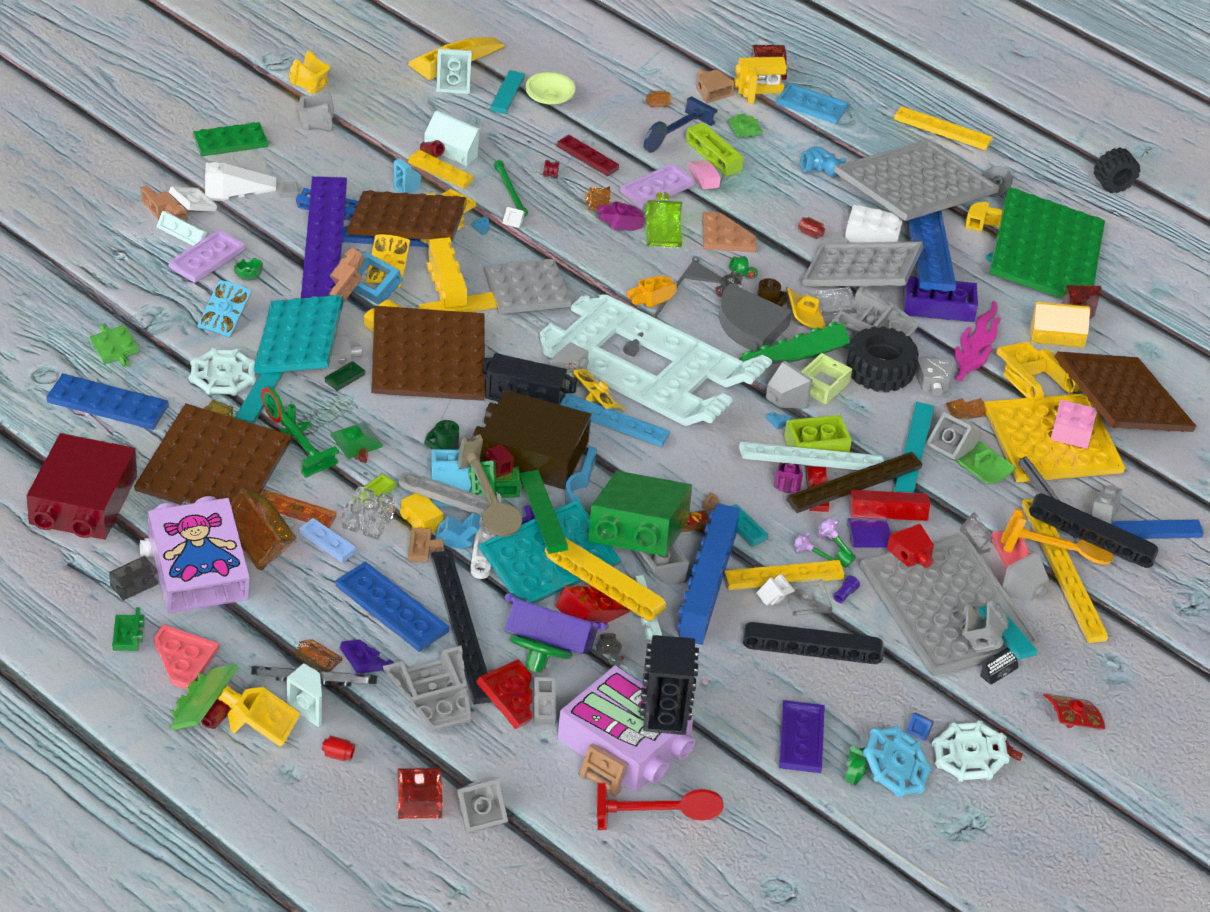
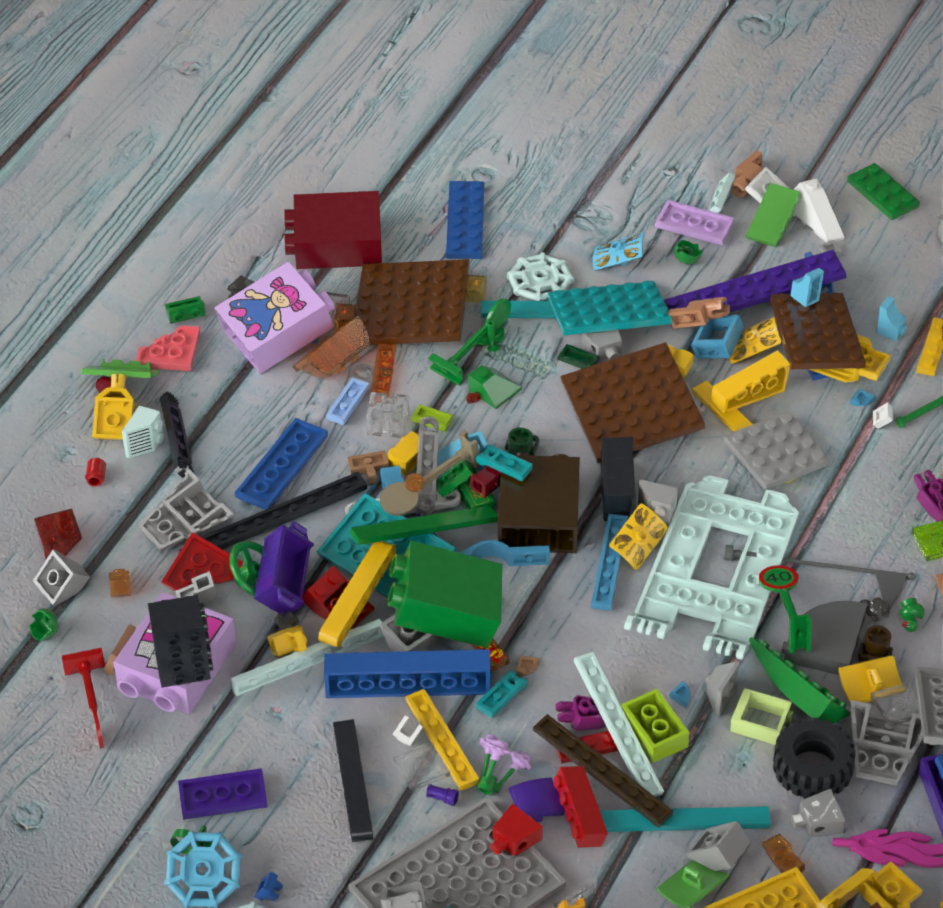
camera: 80 degrees right, 5 degrees up
(114, 344) = (540, 201): bright green plate -> none
(230, 204) = (773, 215): none -> bright green piece
(317, 655) = (208, 433): clear orange slope -> none
(362, 657) = (210, 461): dark purple wing -> none
(365, 198) = (808, 288): none -> medium azure arch
(496, 498) = (414, 482): none -> clear orange plate
(499, 433) = (504, 462): none -> teal plate
(505, 758) = (120, 583): none -> clear orange bracket
(543, 827) = (44, 624): none -> green hair
(635, 643) = (287, 641): none -> yellow brick
(653, 291) = (822, 546): light orange hinge -> none
(687, 322) = (781, 580): none -> green piece

